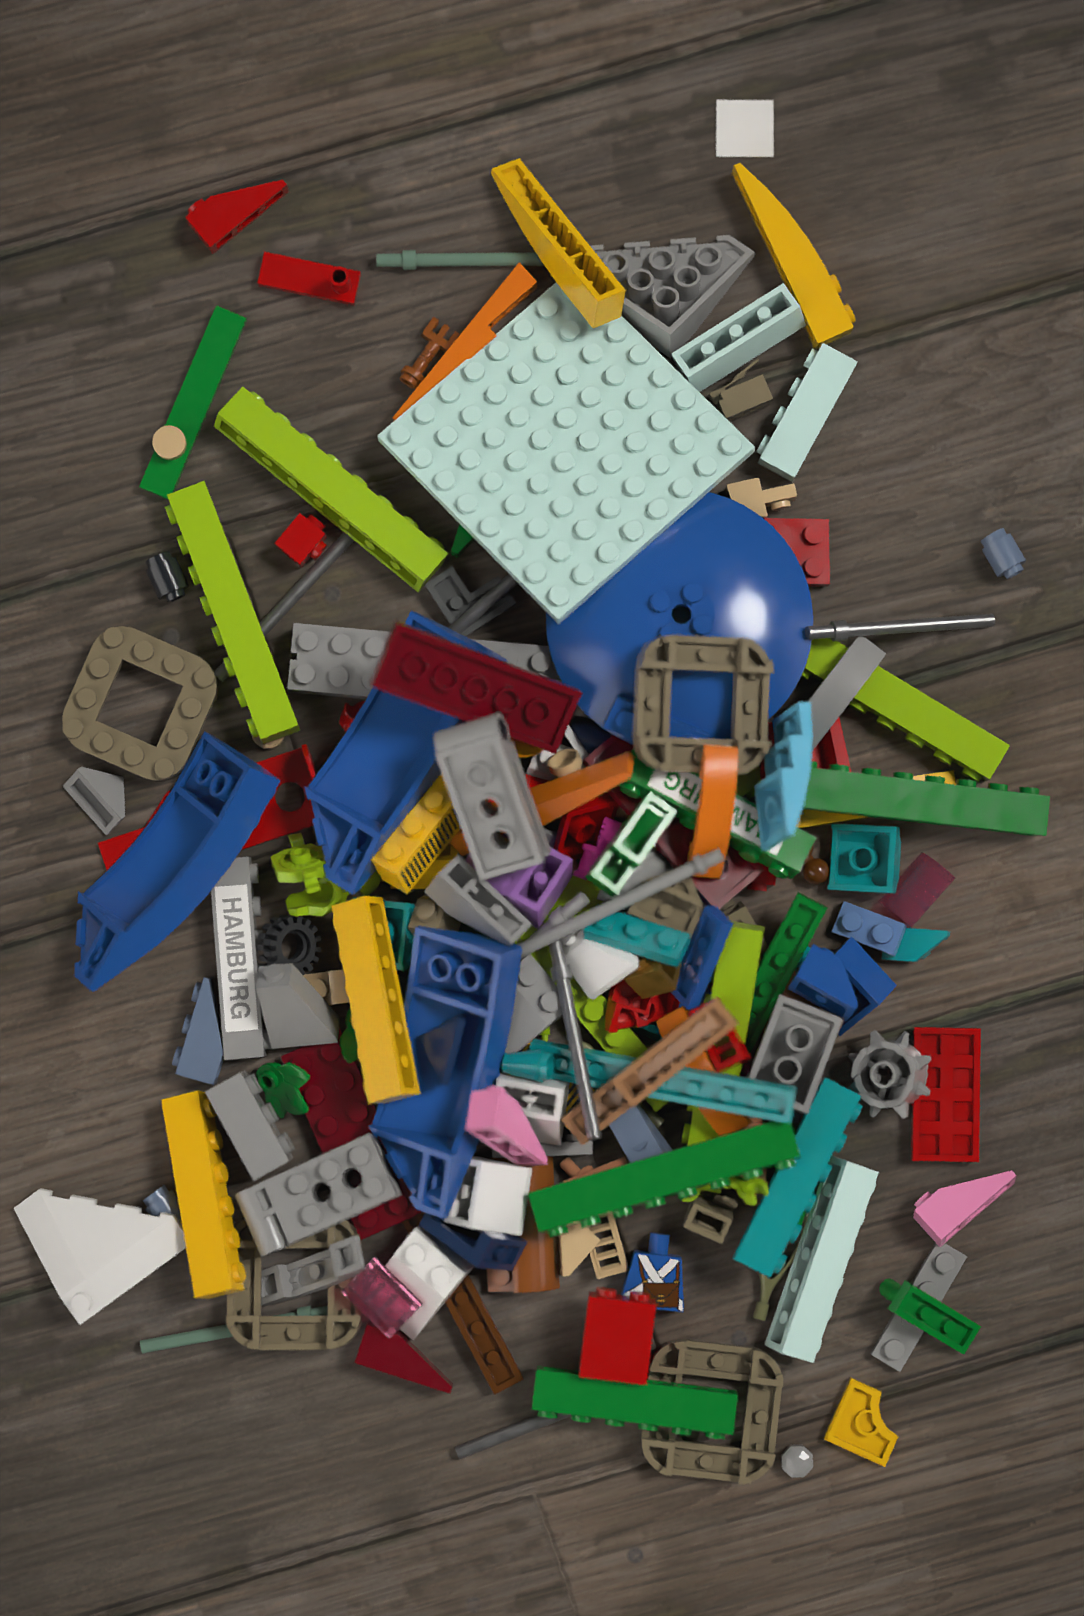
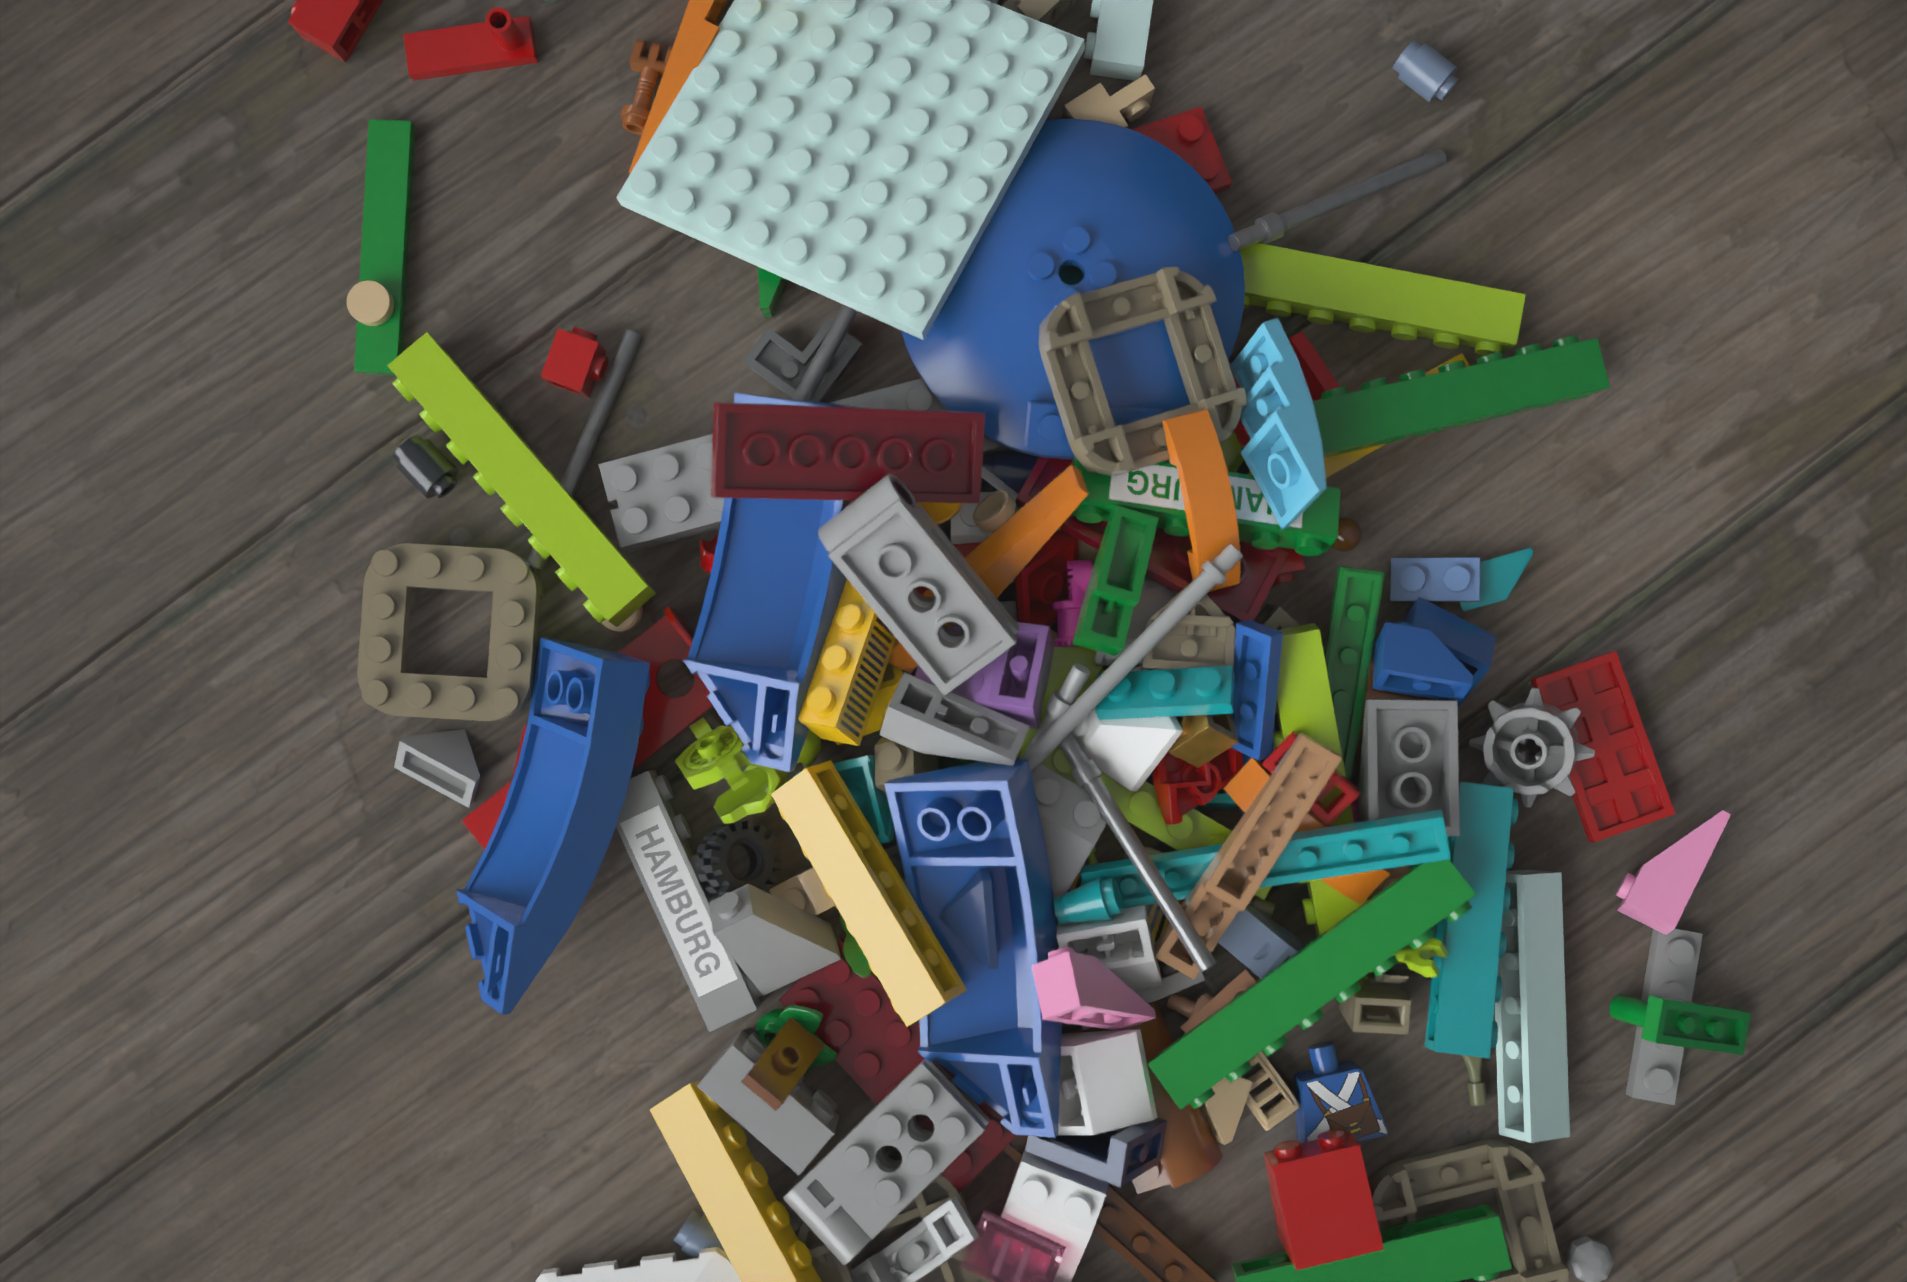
camera: 15 degrees left, 0 degrees up
(203, 1047) = (679, 1032): sand blue slope -> none
(271, 1098) = (782, 1063): none -> reddish brown plate
(330, 488) = (585, 287): lime brick -> none
(843, 685) = (1301, 284): light grey slope -> none
(859, 1424) = (1646, 1187): yellow tile -> none
(865, 858) = (1398, 496): teal slope -> none
(917, 890) = (1475, 512): clear pink brick -> none

